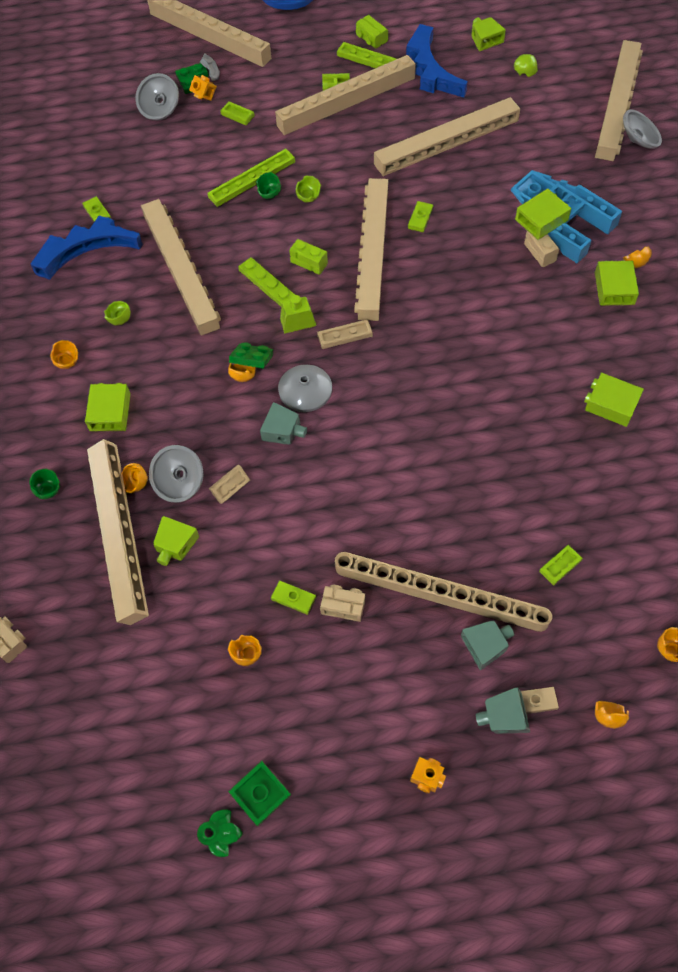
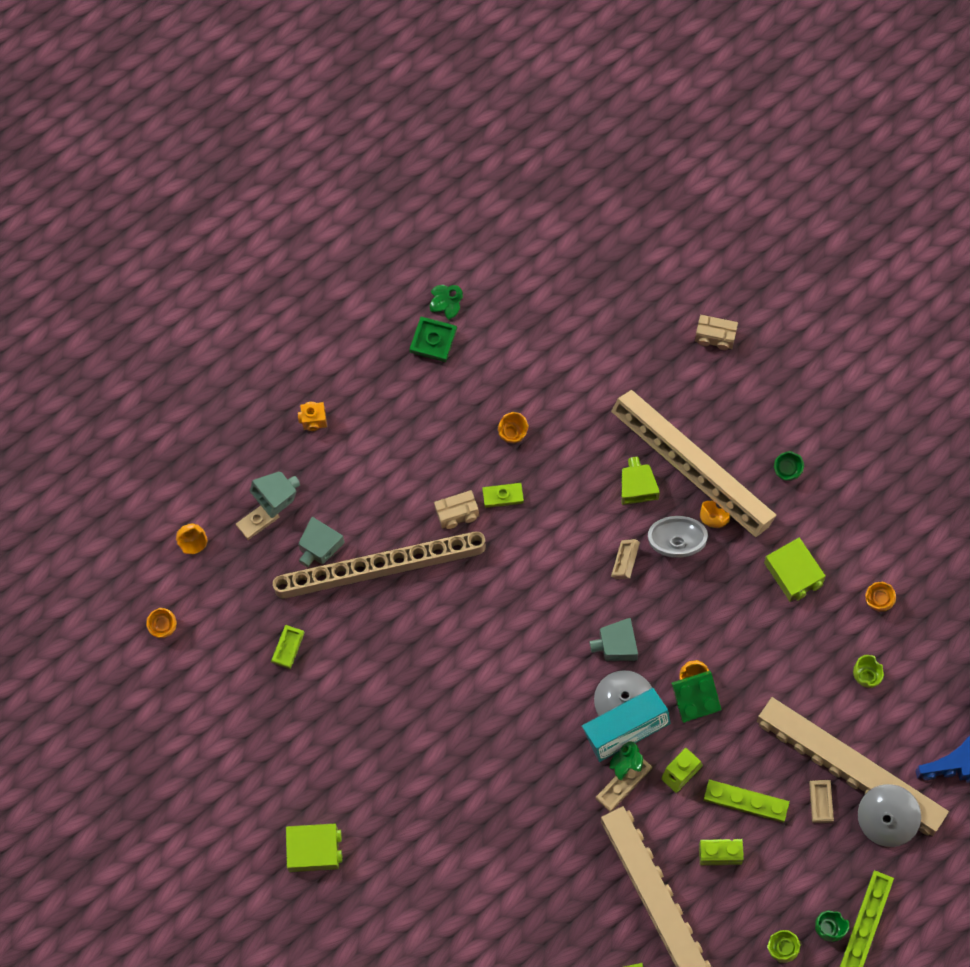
camera: 150 degrees right, 5 degrees up
(180, 222) = (896, 803): none -> light grey dish
(216, 259) = (821, 801): none -> tan tile
(316, 360) = (626, 723): none -> teal slope
(336, 338) = (627, 758): none -> green plate

